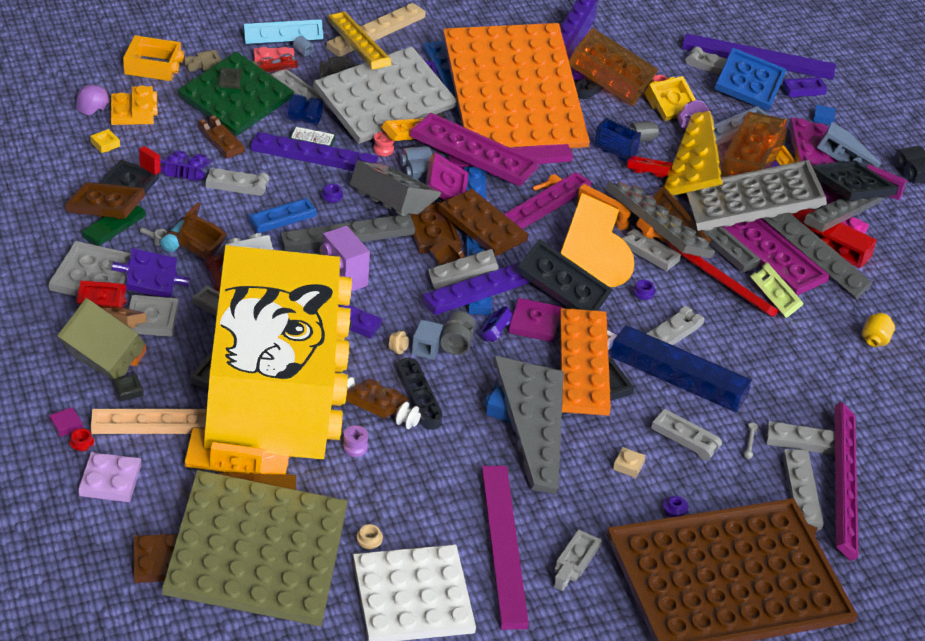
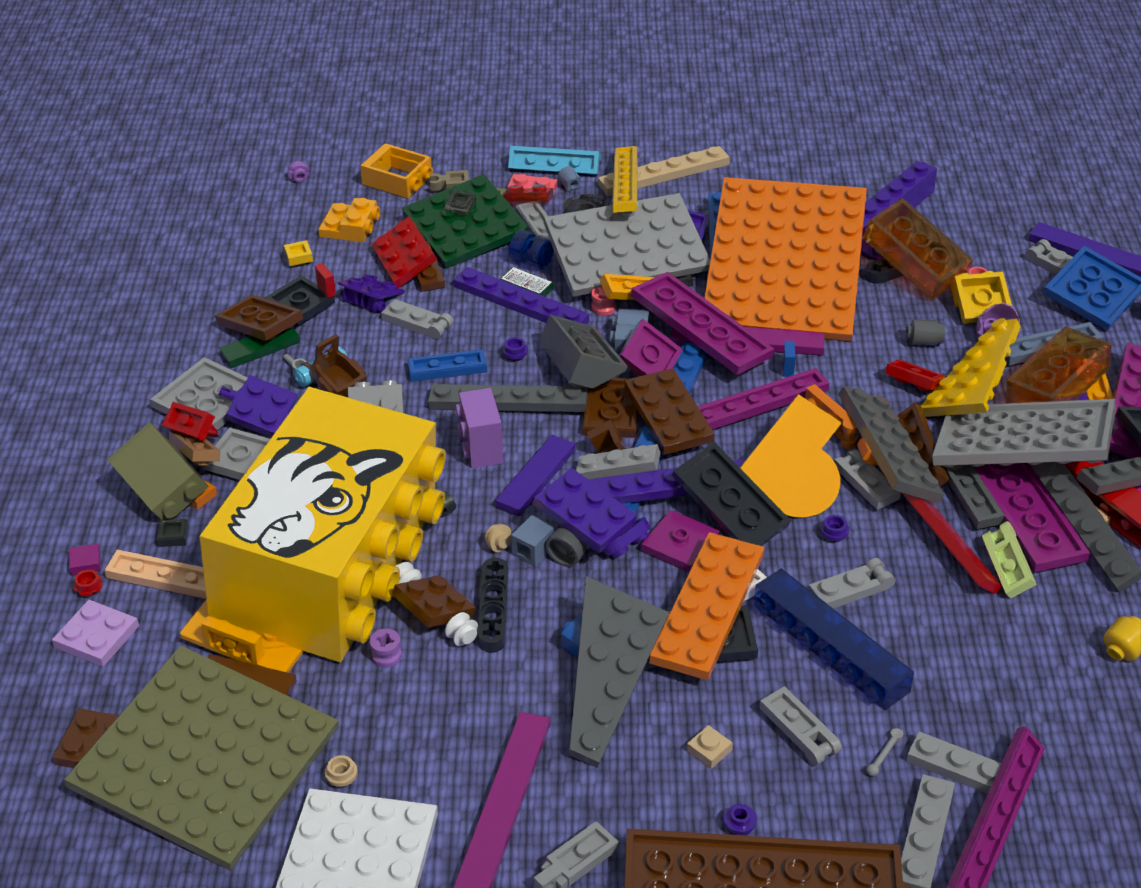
camera: 25 degrees right, 0 degrees up
(63, 70) = (298, 171): none -> medium lavender plate
(91, 98) = (309, 205): medium lavender hair -> none
(199, 126) = (404, 251): none -> red plate
(363, 322) = (469, 503): dark purple plate -> none
(400, 290) = (535, 475): none -> dark purple tile
(464, 307) = (585, 510): none -> dark purple plate
(551, 165) = (789, 358): none -> blue tile
(553, 179) = (783, 373): orange hand -> none
(617, 139) = (885, 336): clear blue brick -> none

